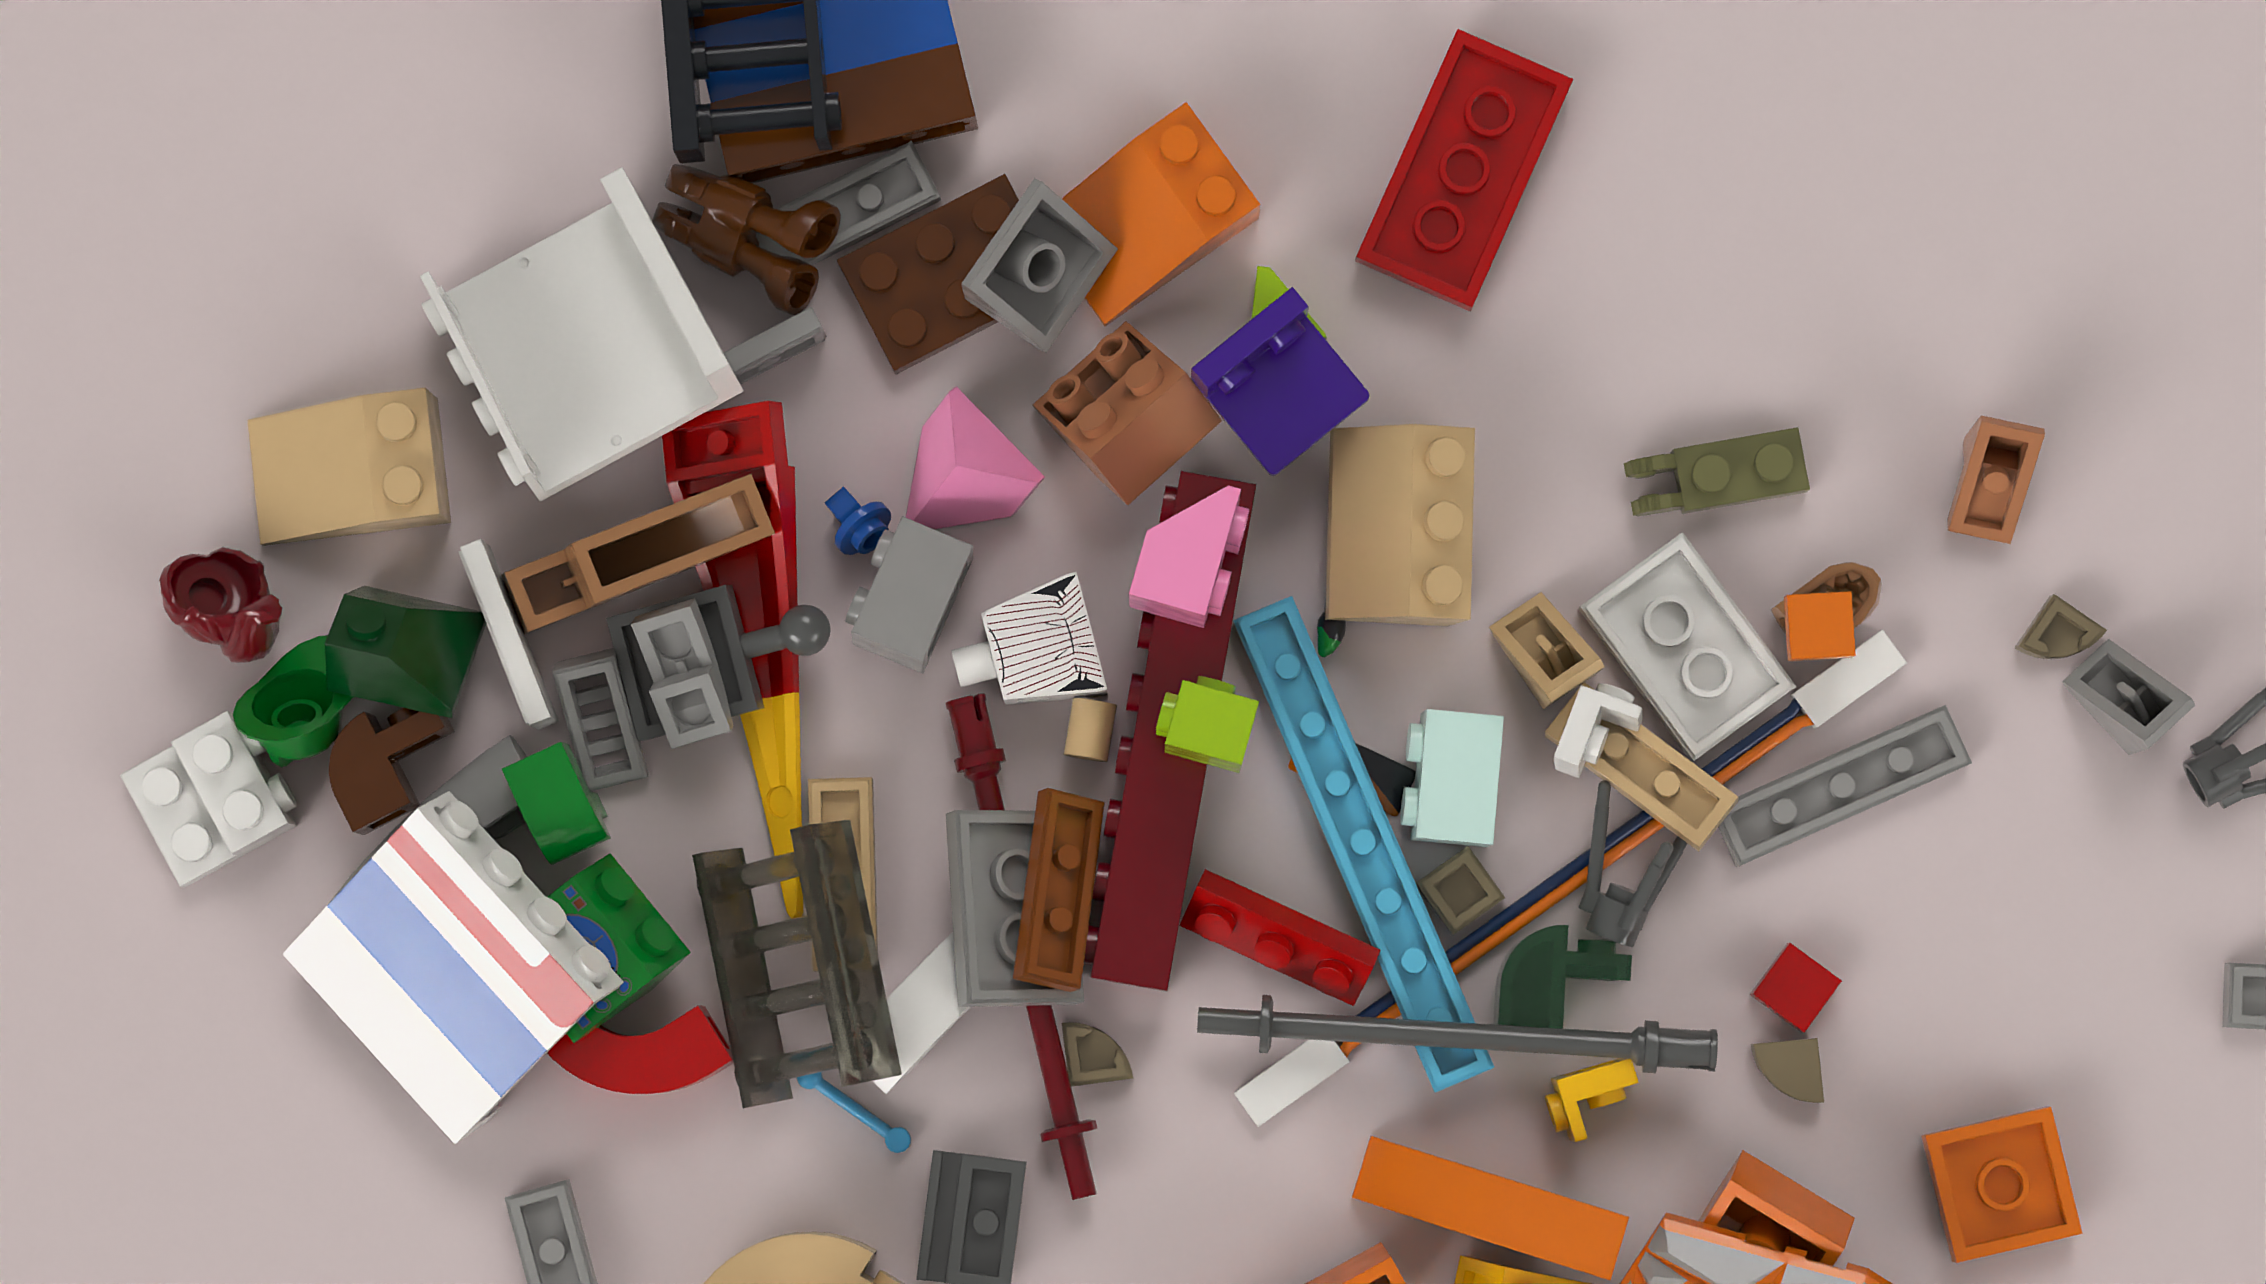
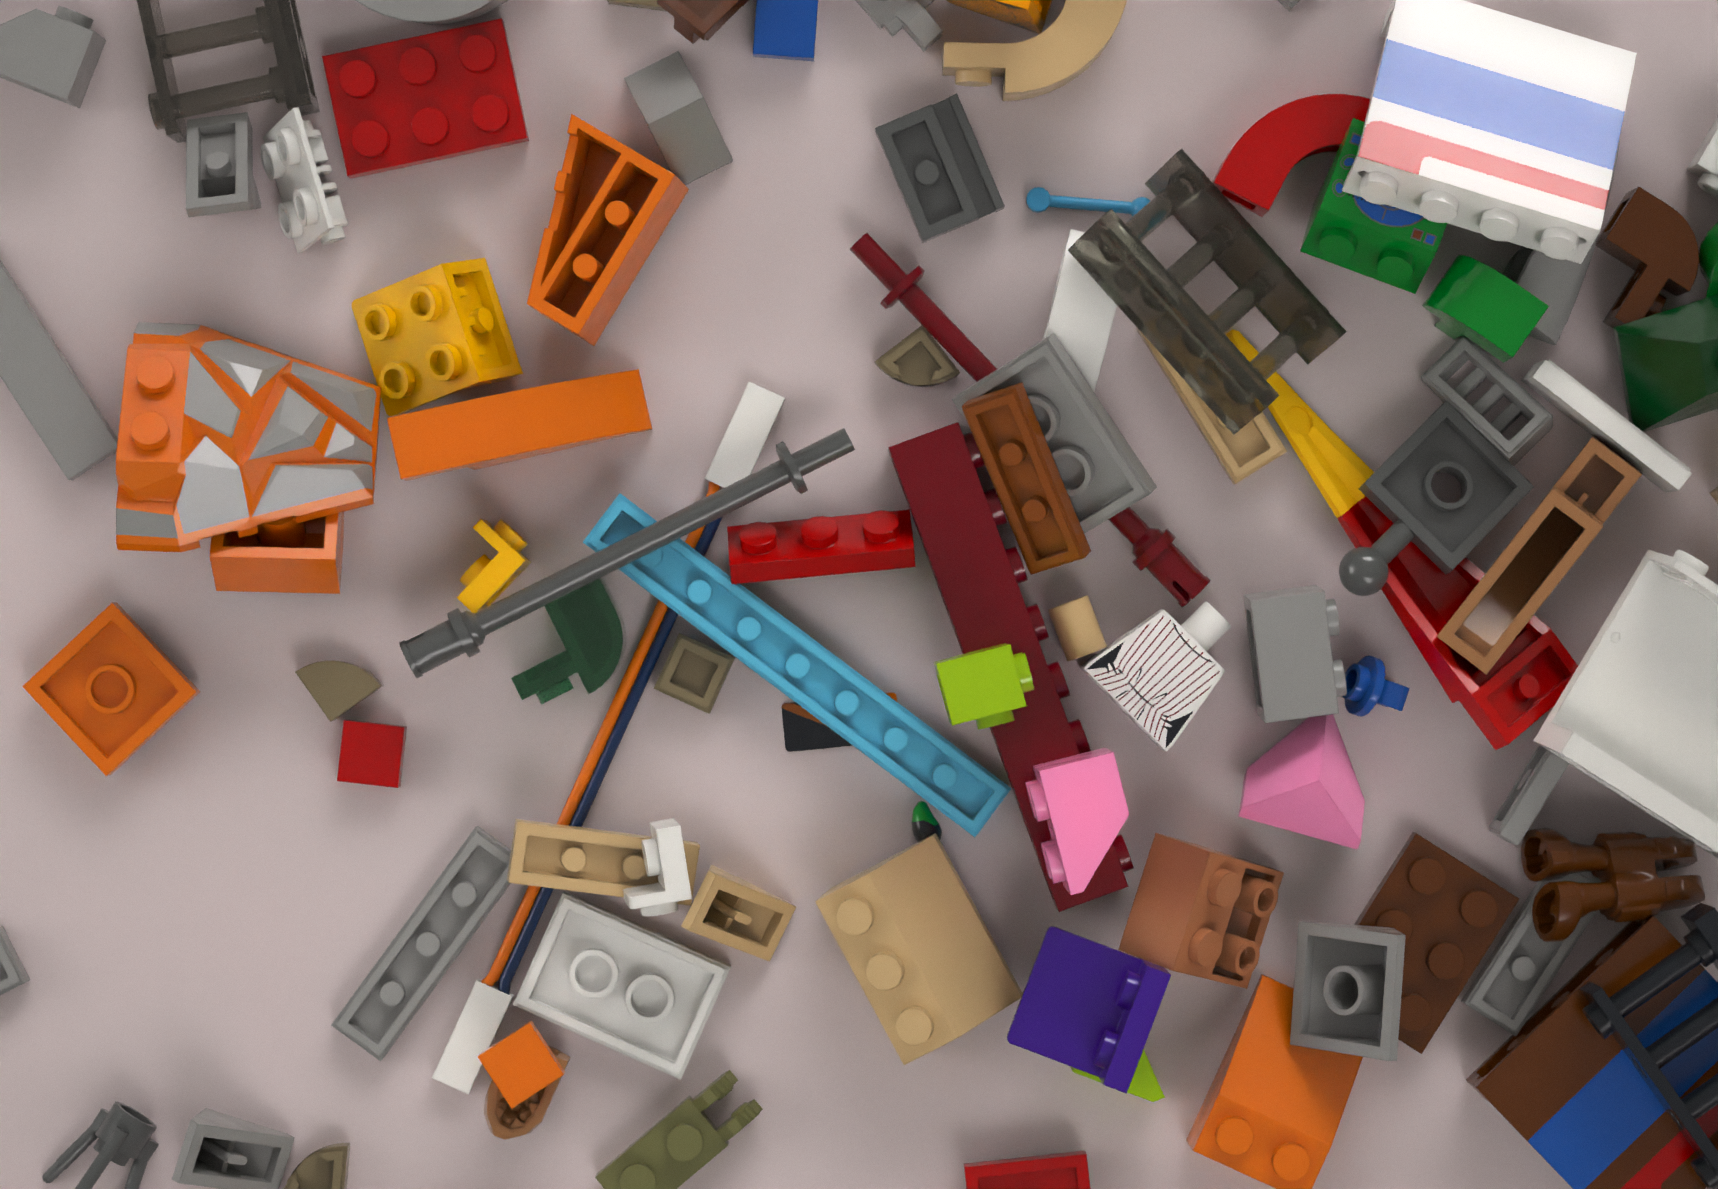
camera: 145 degrees right, 5 degrees up
(684, 673) = (1441, 477): light grey slope -> none
(1454, 777) = (753, 763): light aqua brick -> none
(1622, 911) = (551, 733): dark grey plant -> none

